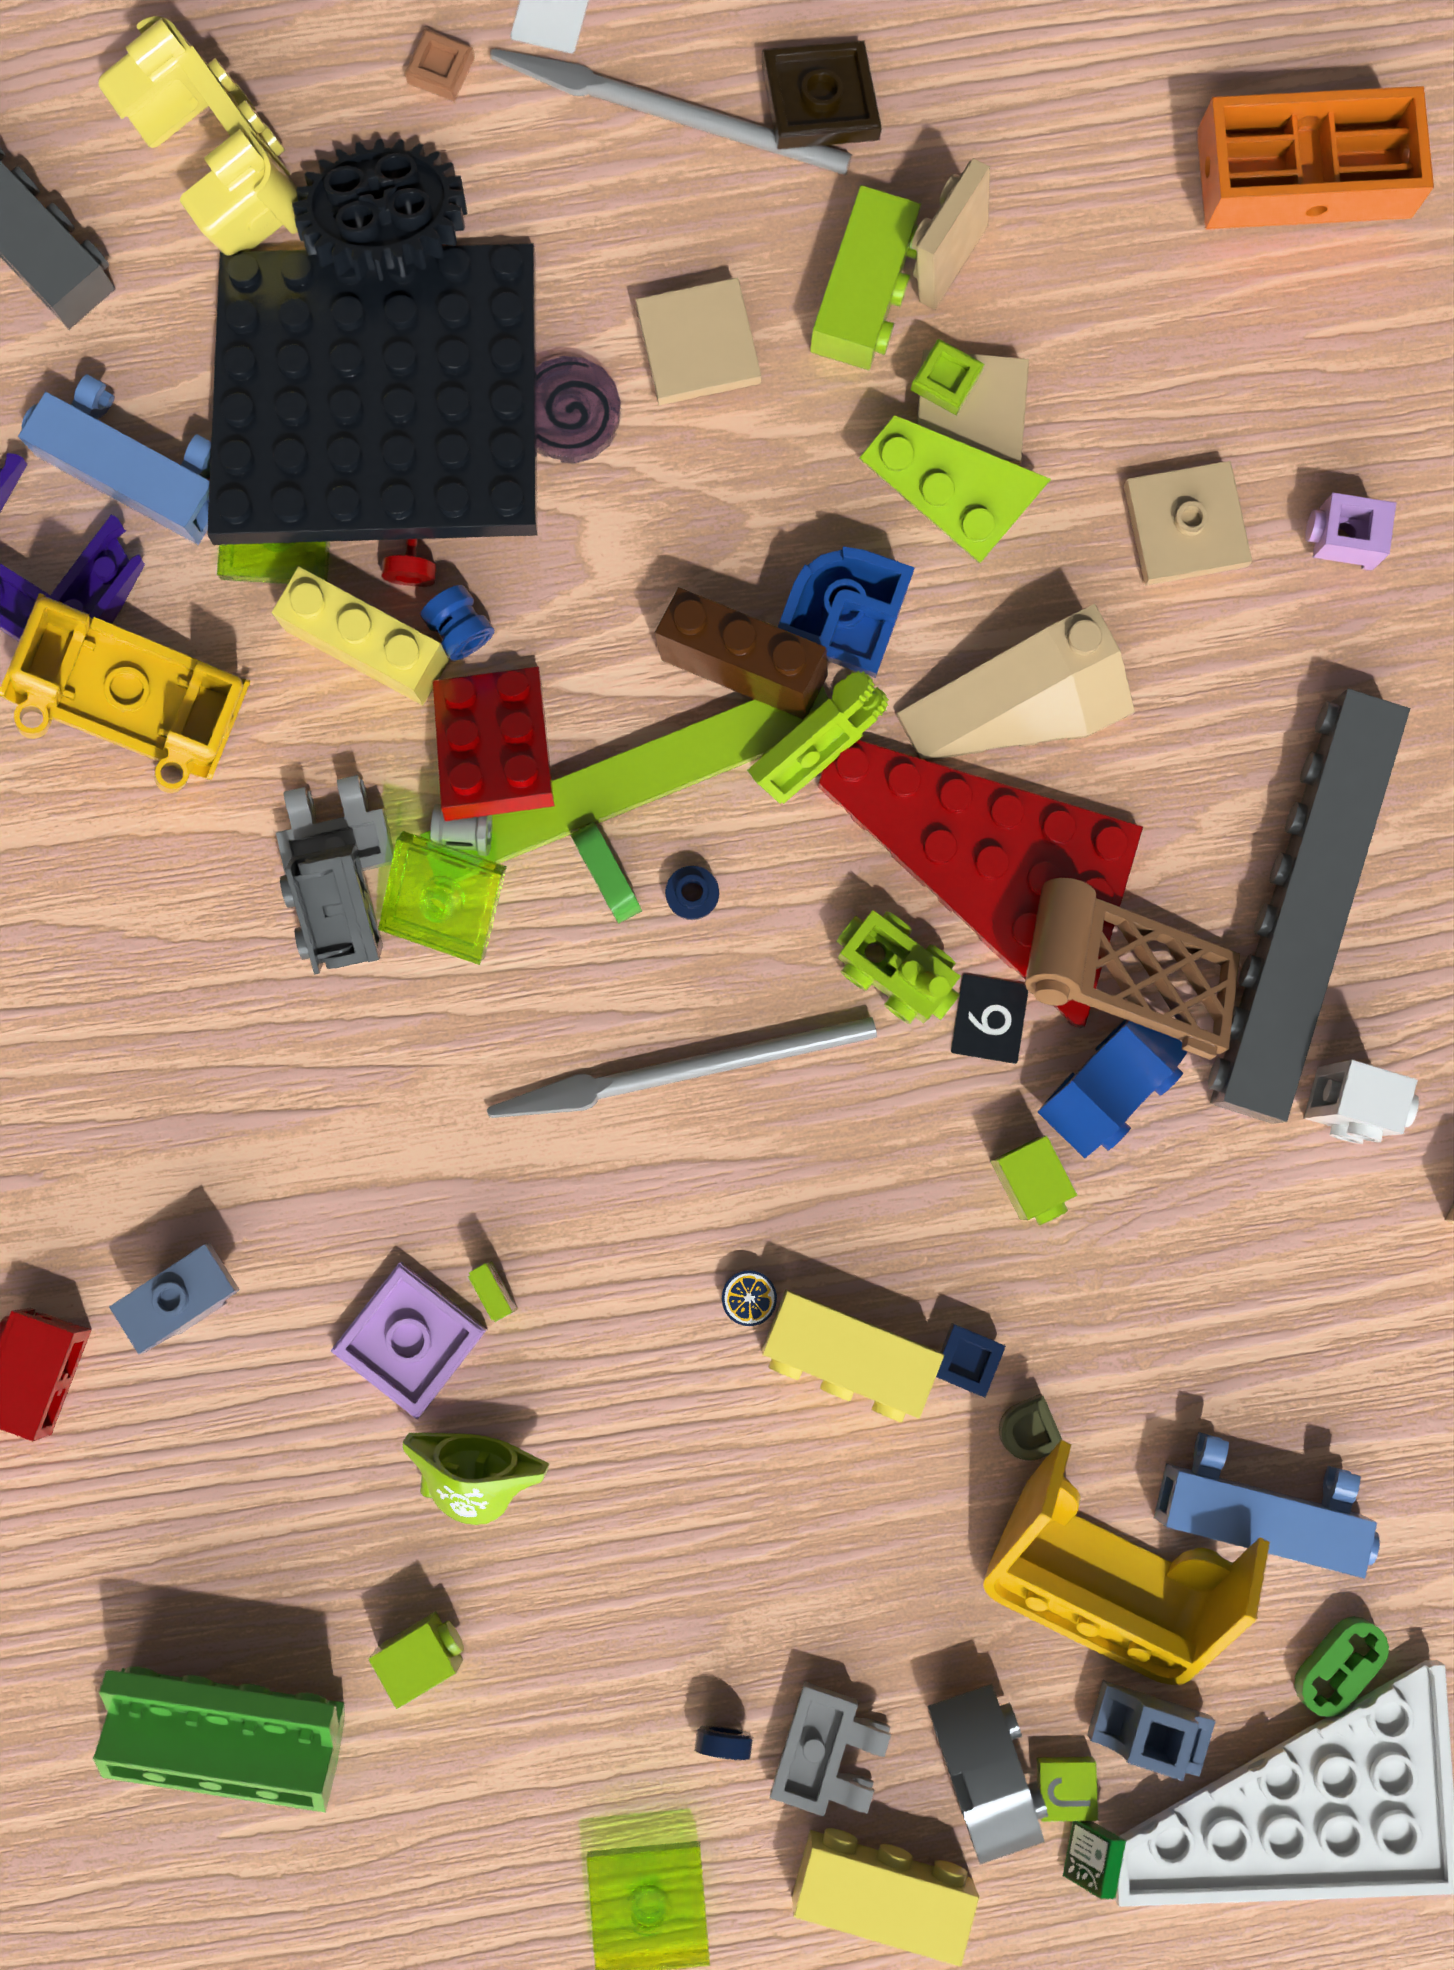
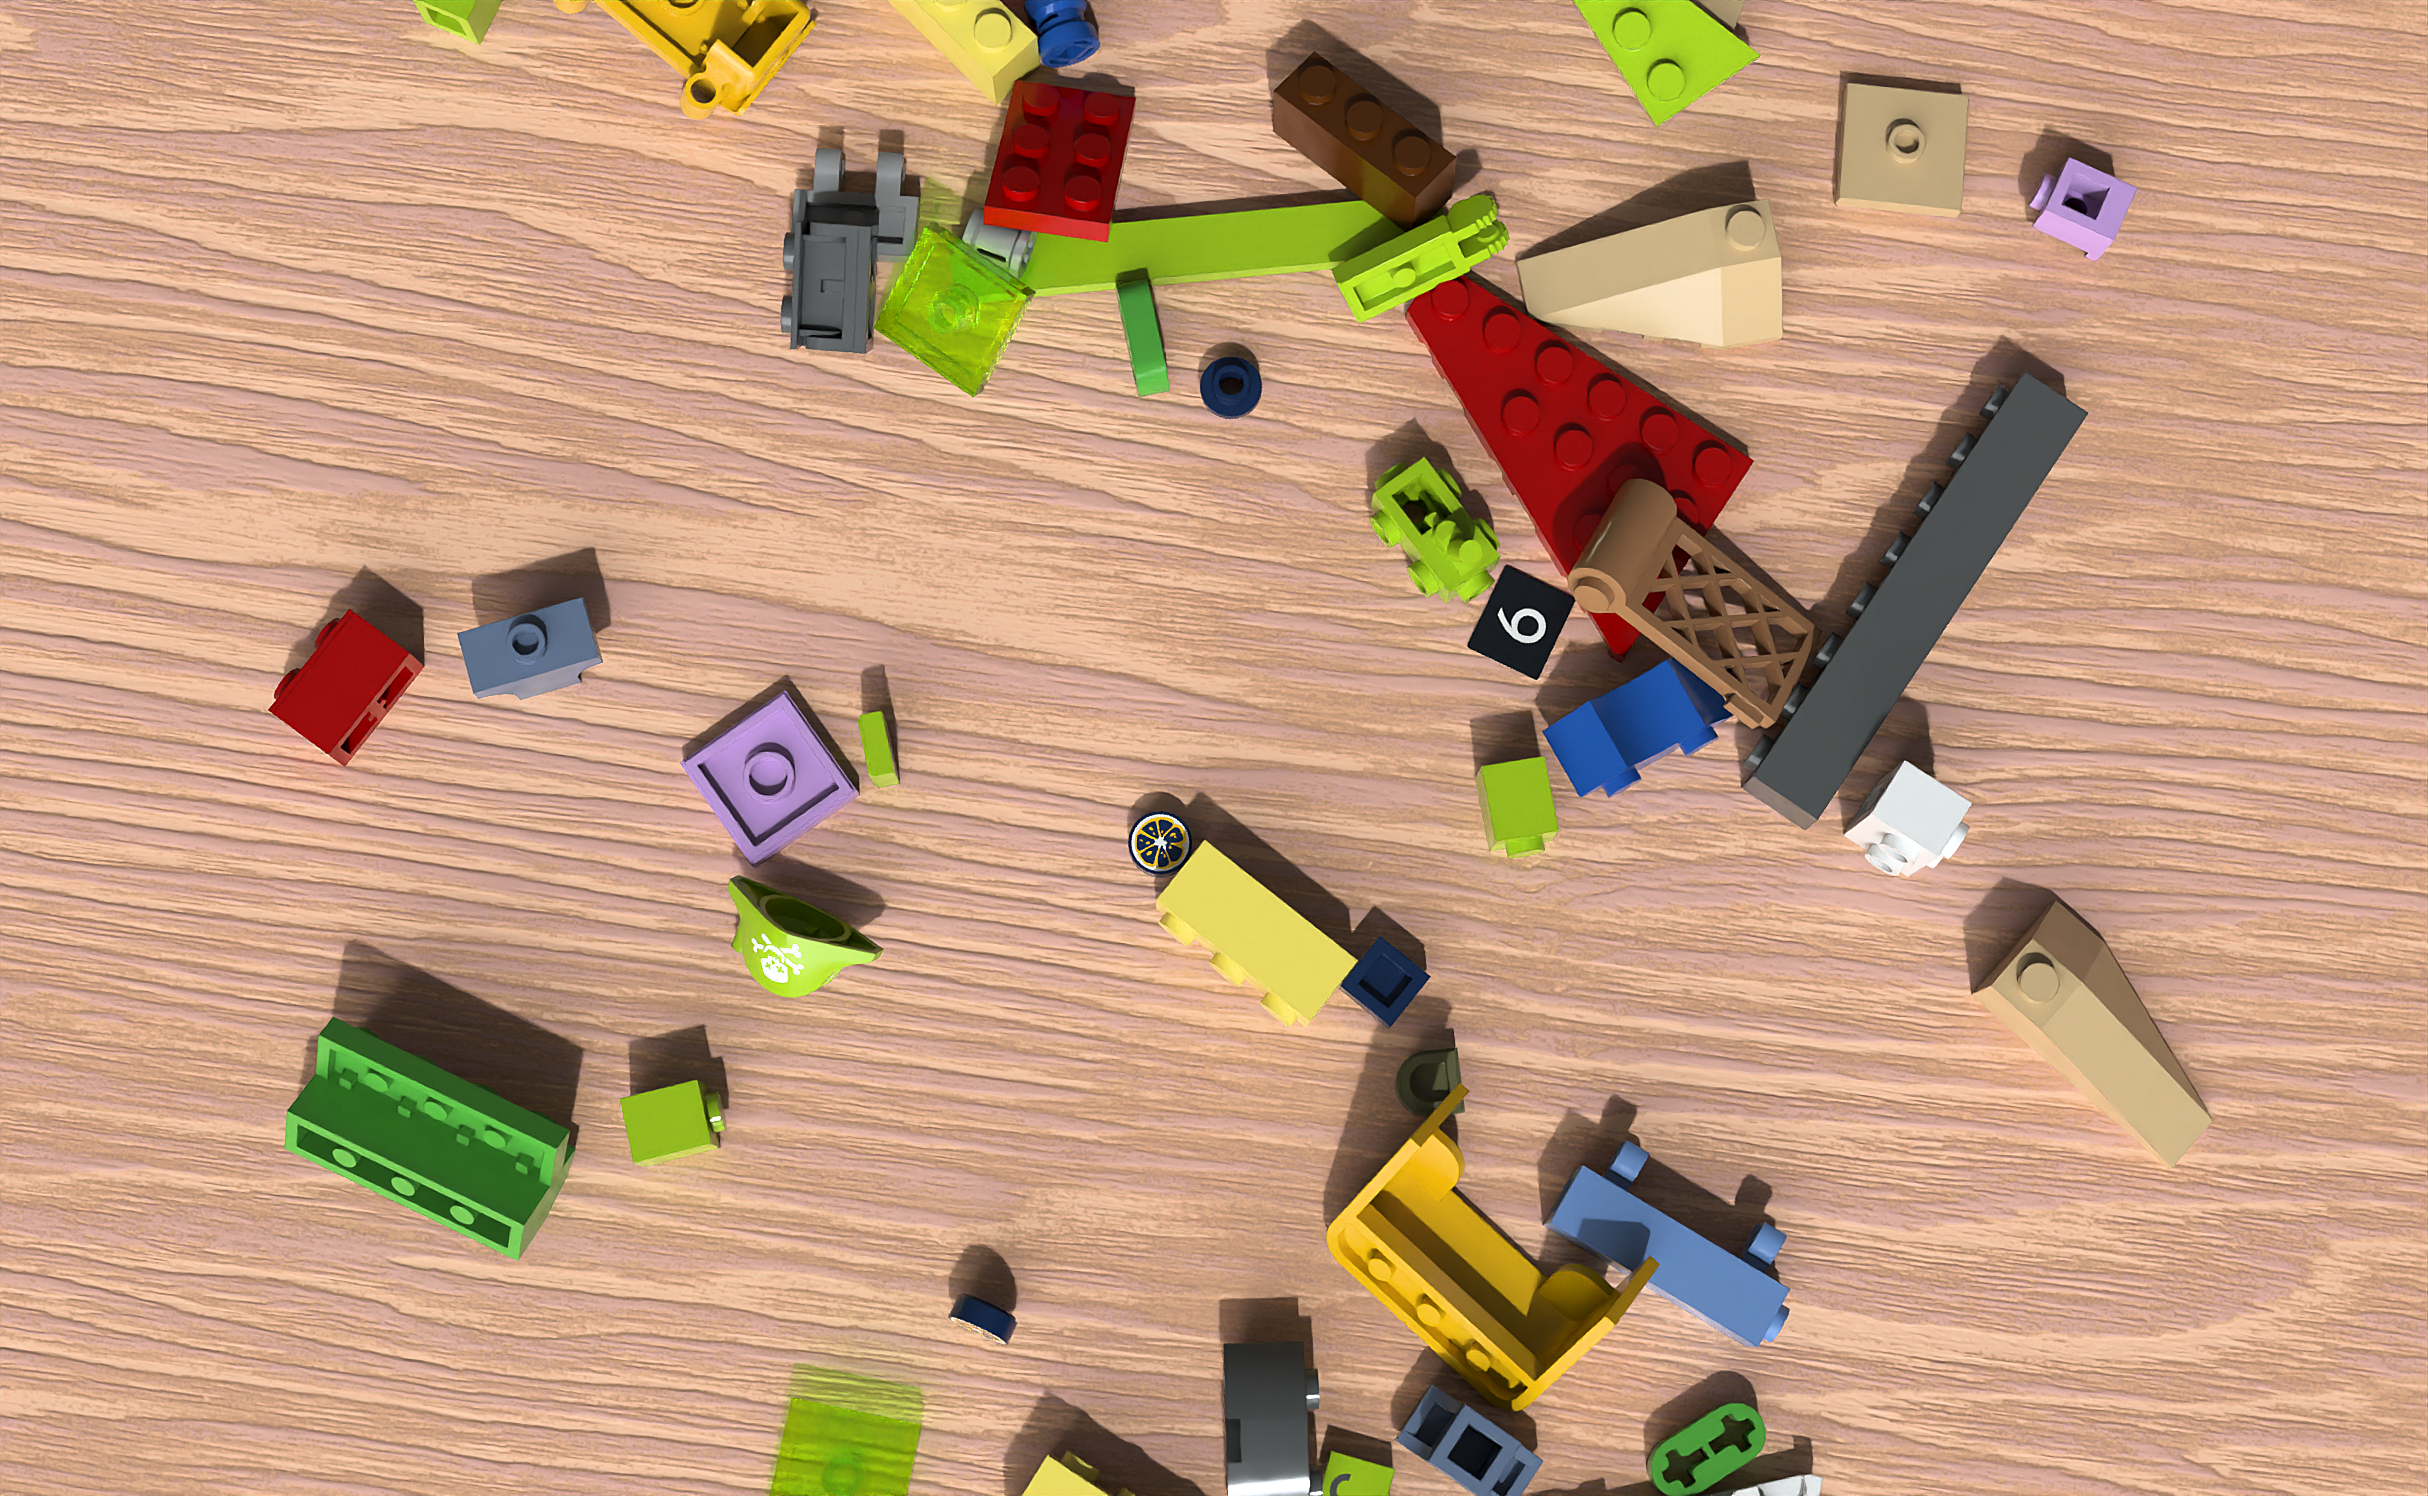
camera: 15 degrees right, 5 degrees down
(584, 1091) = (1047, 567): light grey piece -> none
(814, 1750) = (1082, 1359): light grey plate -> none
(848, 605) = (1498, 125): blue brick -> none

